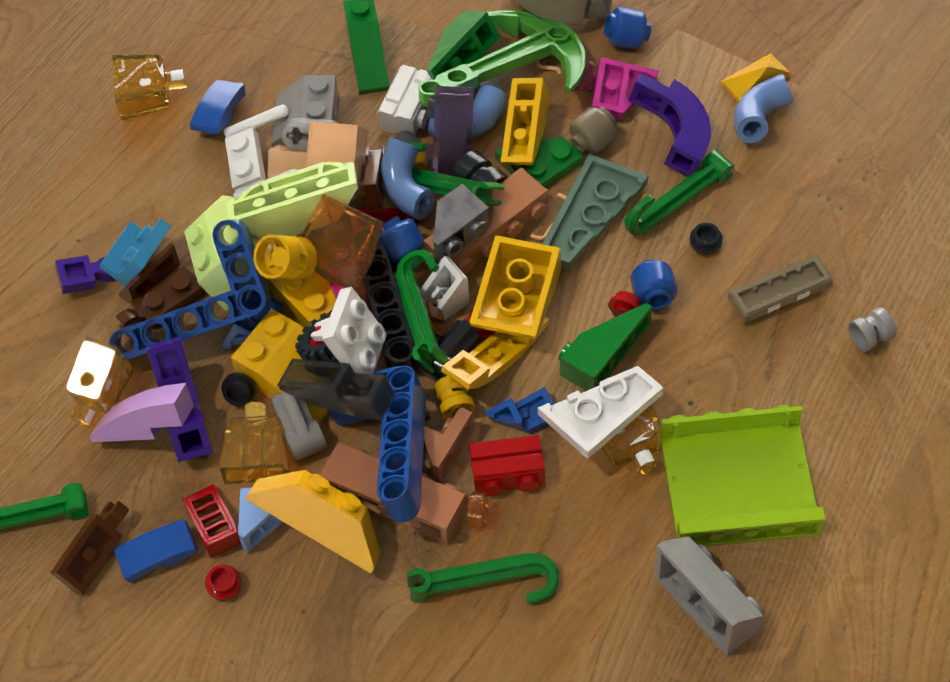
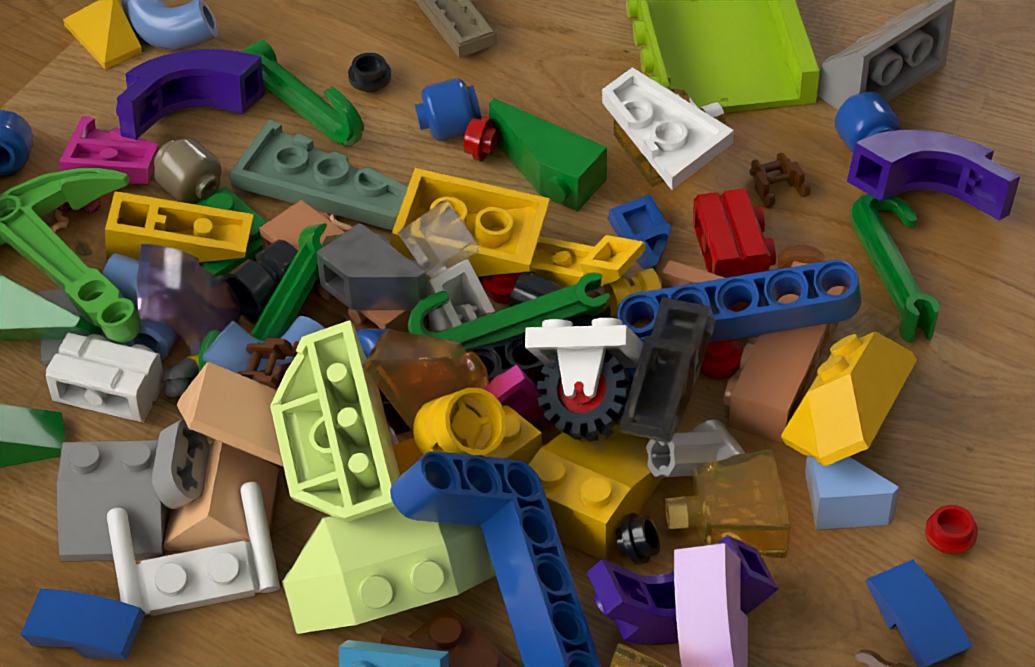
camera: 95 degrees left, 10 degrees down
(221, 541) = (879, 530): red slope -> none
(365, 163) = (274, 350): none -> reddish brown piece
(464, 250) = (439, 239): none -> clear panel
(578, 497) = (790, 172): none -> reddish brown piece
(583, 601) = (935, 162): none -> dark purple arch
(627, 571) = (863, 117): none -> blue head

